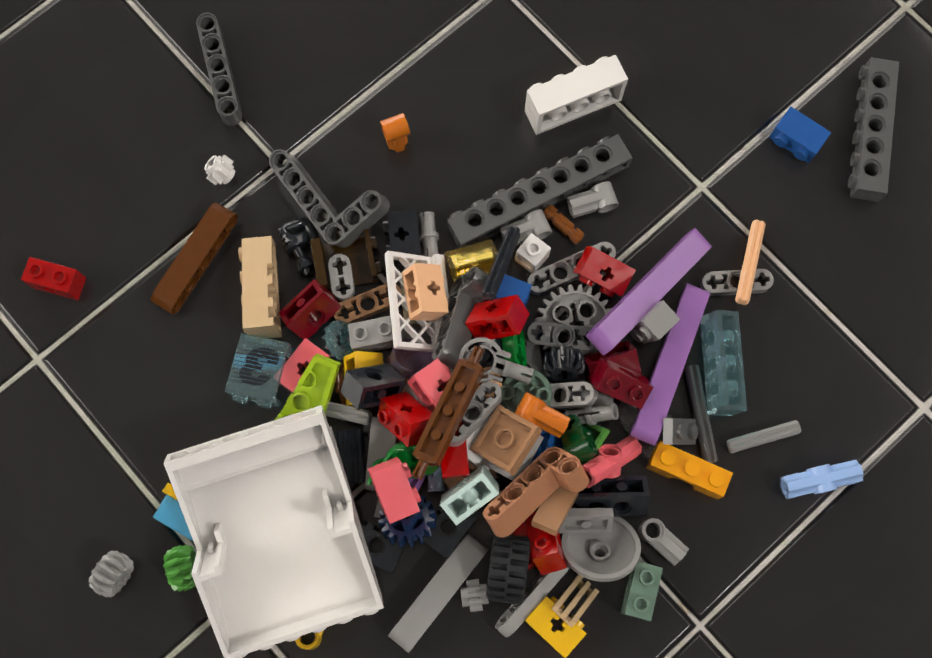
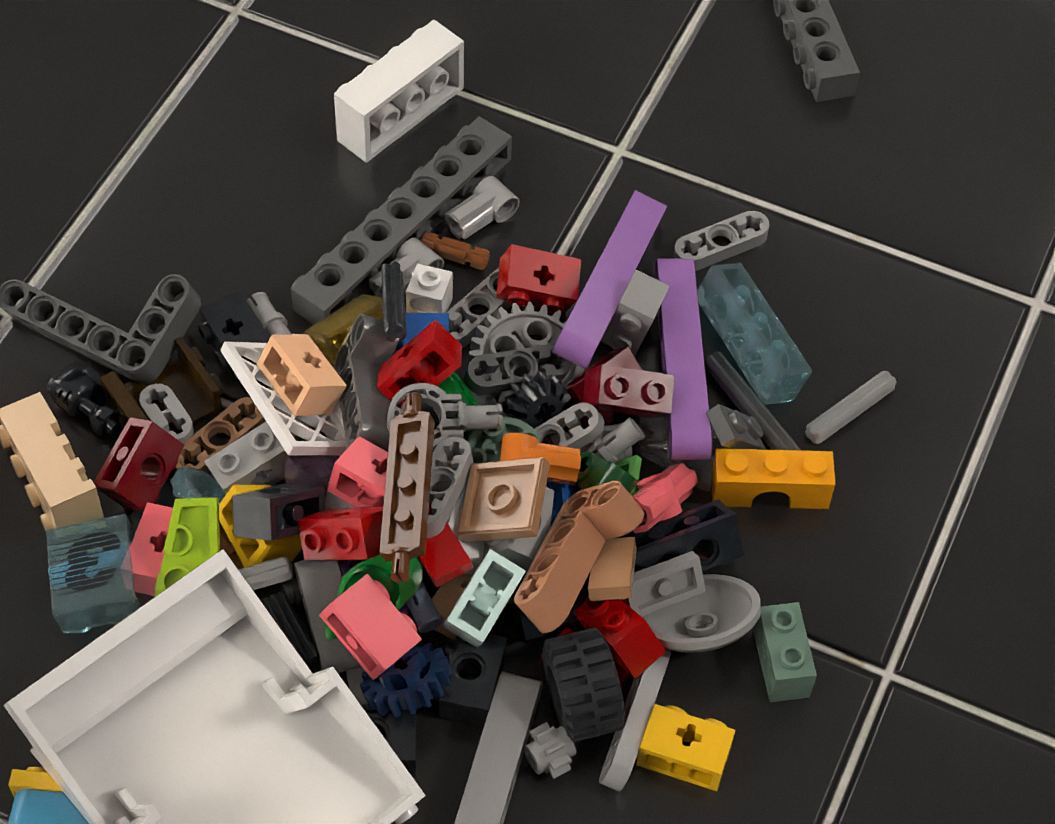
camera: 25 degrees left, 20 degrees down
(395, 132) = (168, 207): orange piece -> none
(584, 589) = (700, 686): tan tile -> none
(664, 541) = (781, 578): light grey piece -> none
(750, 262) = (727, 207): light nougat axle -> none
(799, 135) = (716, 49): blue brick -> none
(821, 479) = (952, 427): light blue piece -> none

